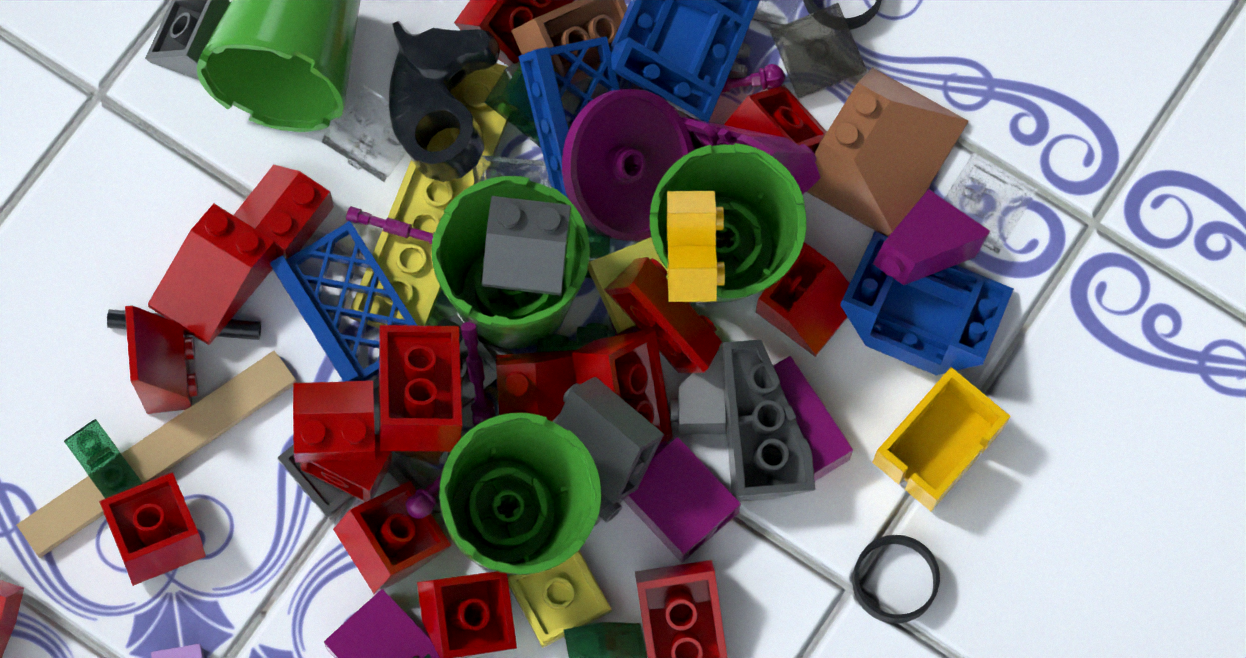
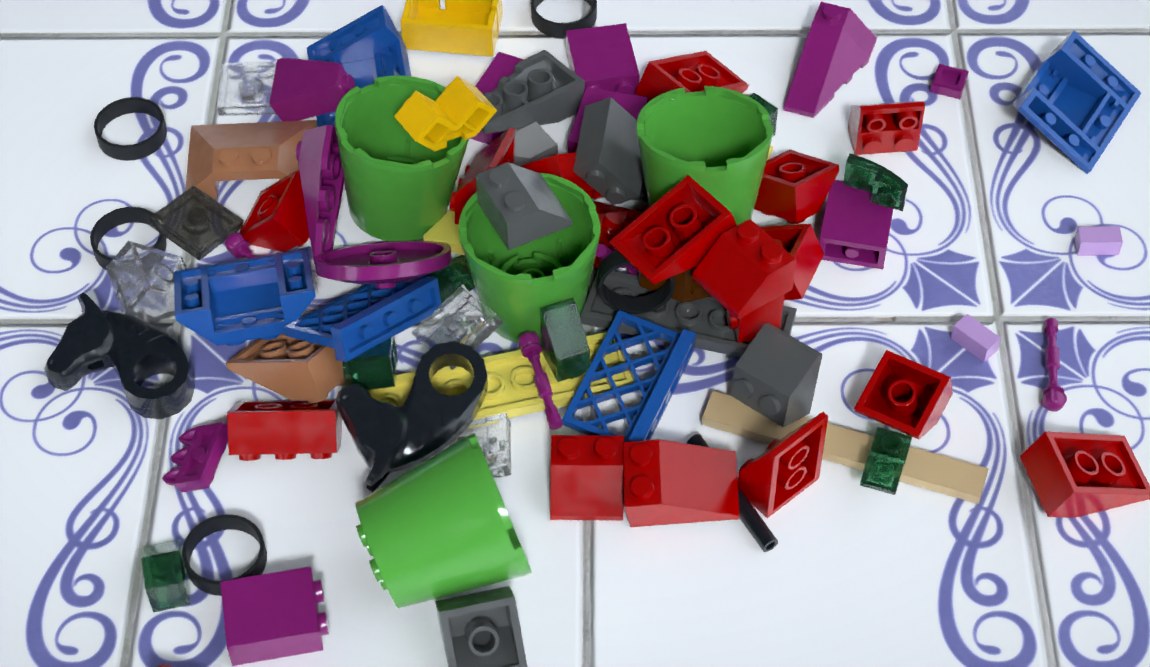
camera: 120 degrees left, 20 degrees down
(248, 419) = (777, 376): none -> dark grey slope
(411, 261) = (564, 340): none -> clear green slope
(776, 556) = (603, 58): none -> magenta brick
(1010, 29) = (126, 106): none -> black tyre

